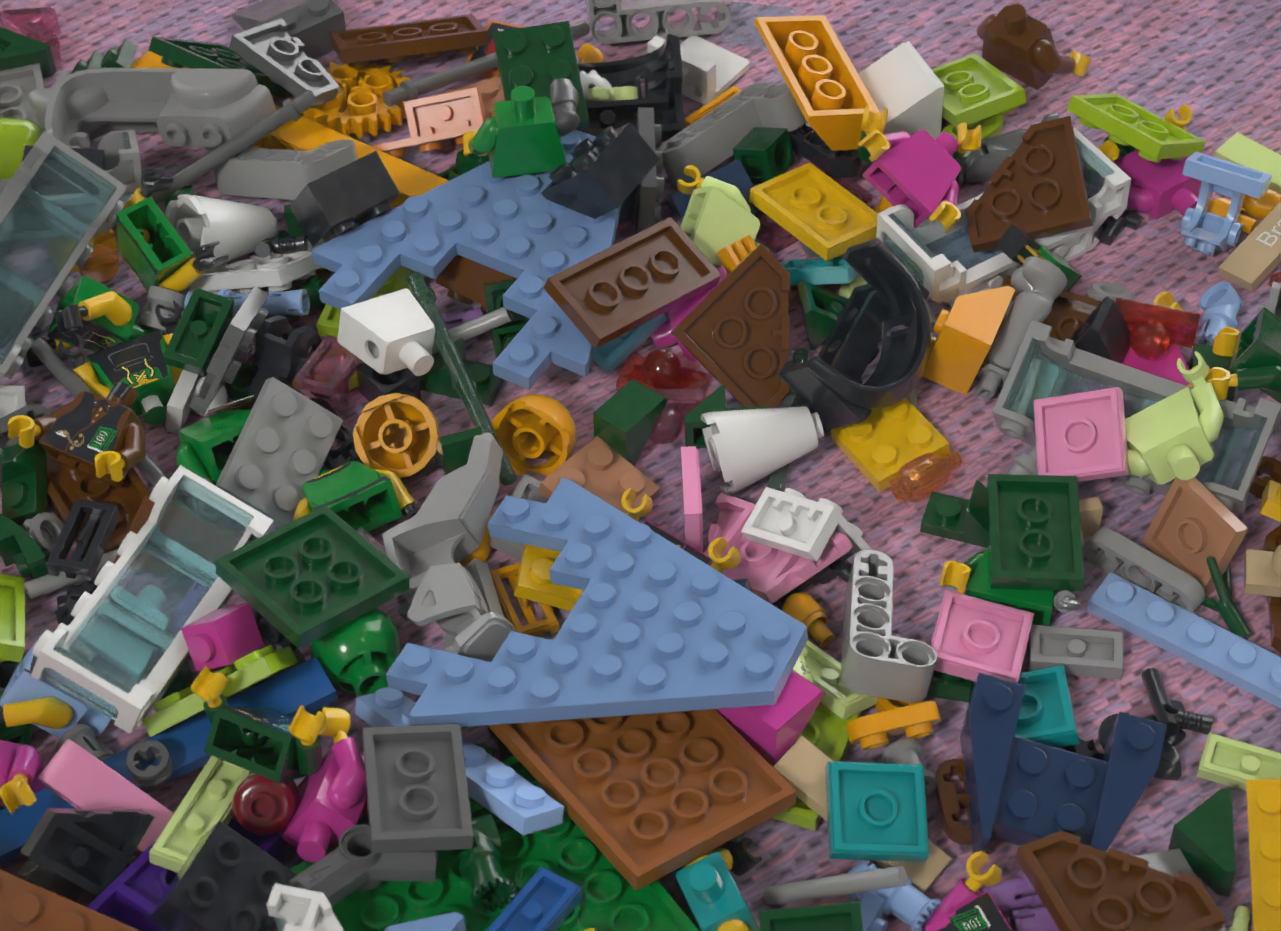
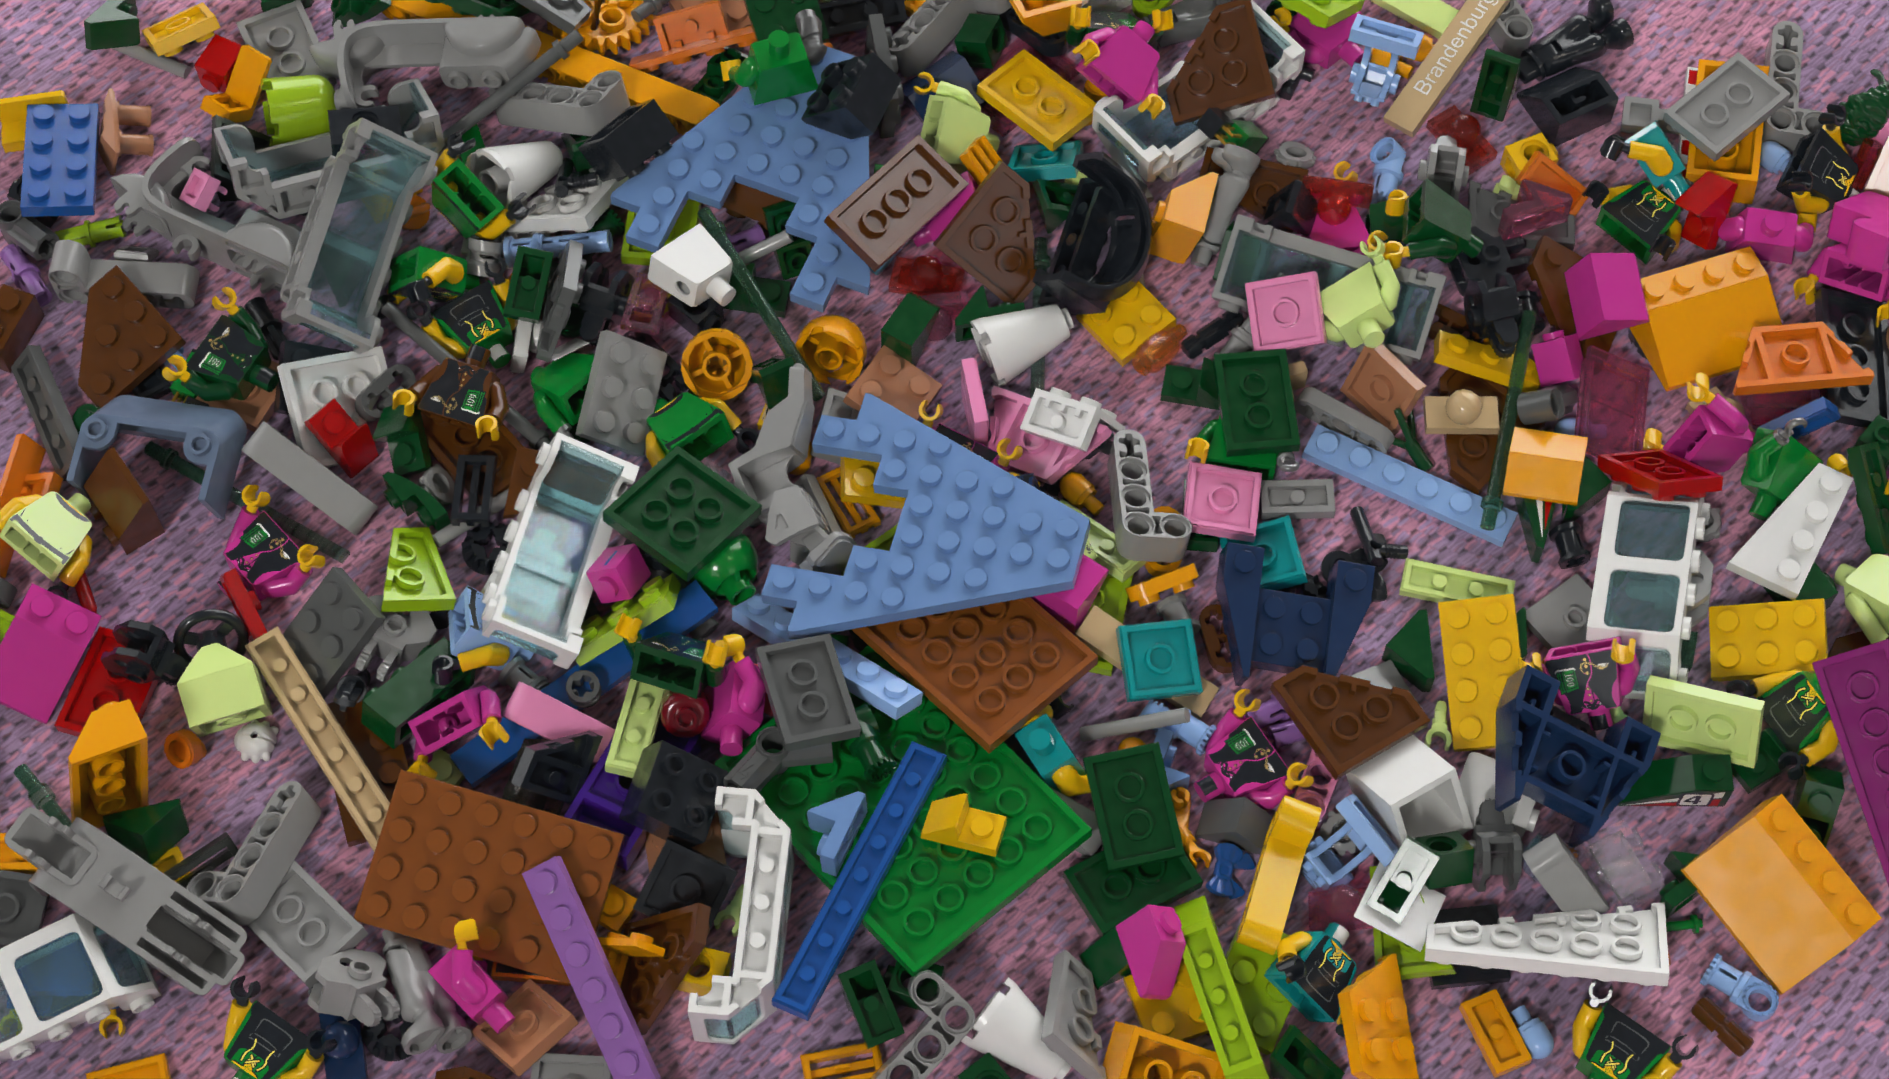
camera: 10 degrees left, 15 degrees up
(993, 463) = (1211, 334): none -> black axle

